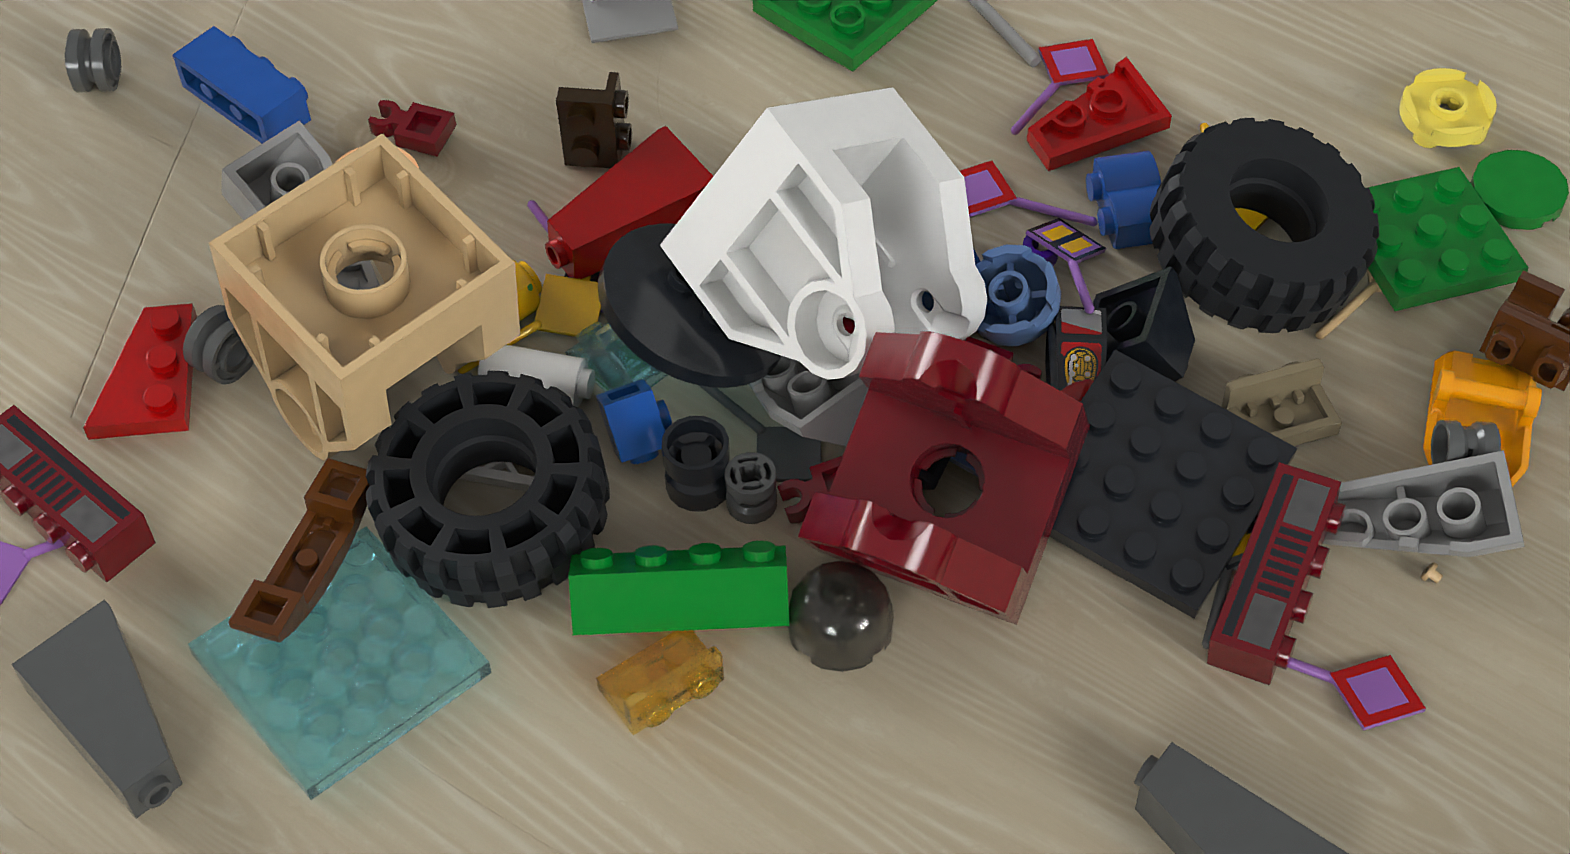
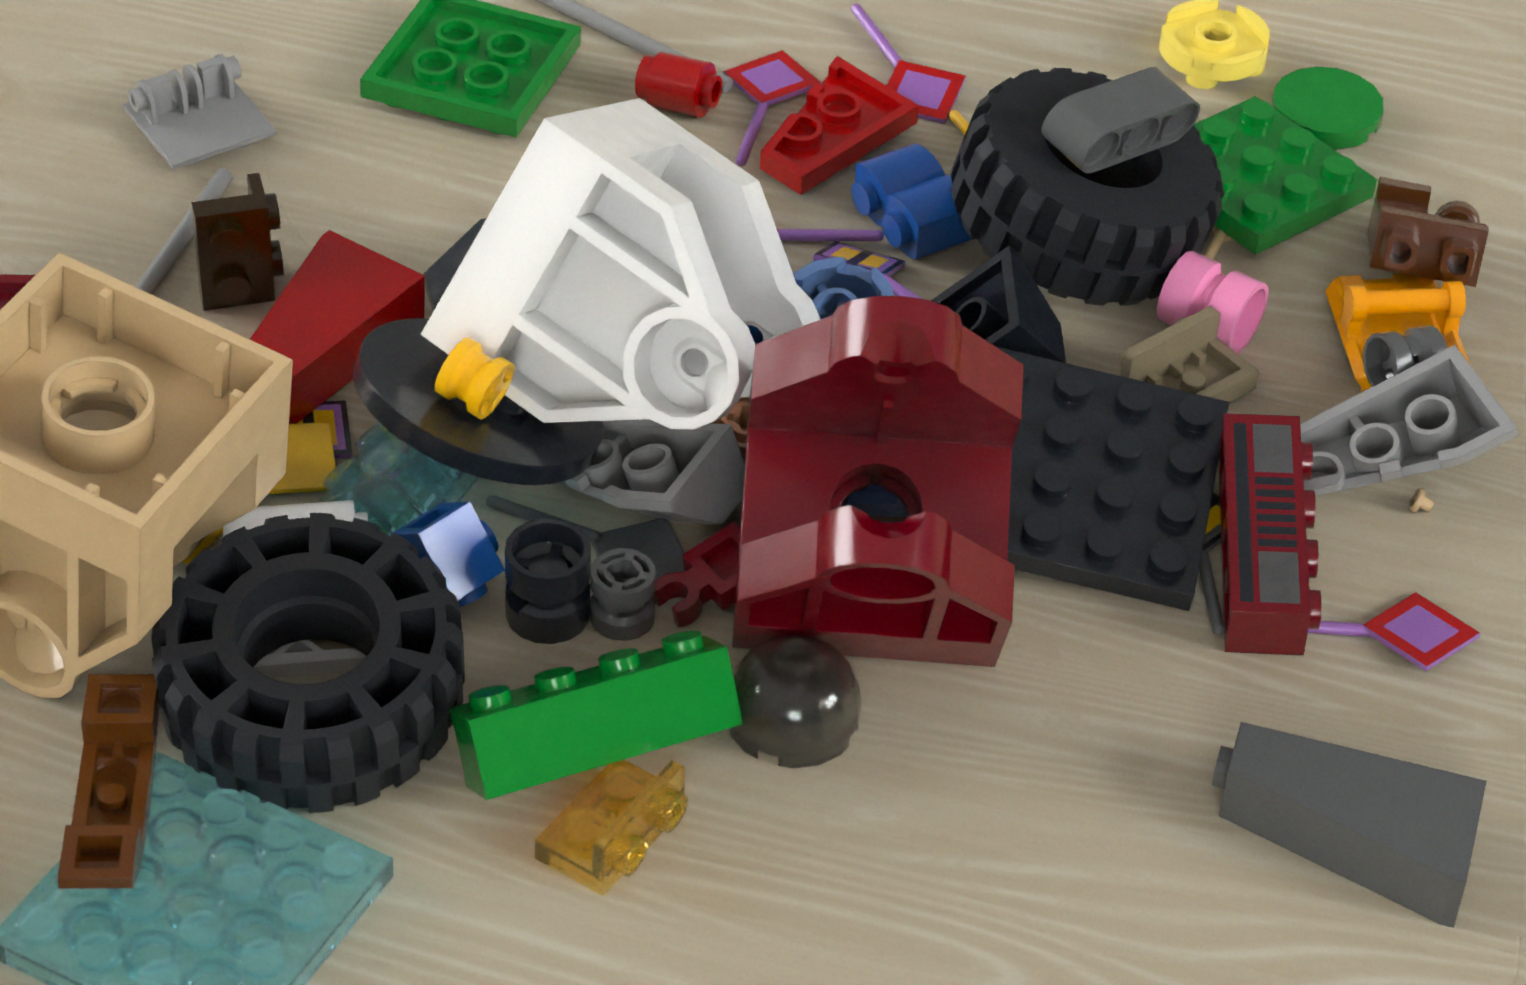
camera: 25 degrees left, 10 degrees down
(546, 122) = (181, 235): none -> light grey axle
(681, 293) = (474, 378): none -> yellow wheel
(992, 53) = (678, 83): none -> red brick
(1186, 95) = (928, 87): none -> medium lavender piece
(1298, 181) = (1120, 119): none -> dark grey beam
(1345, 354) = (1198, 283): none -> bright pink wheel

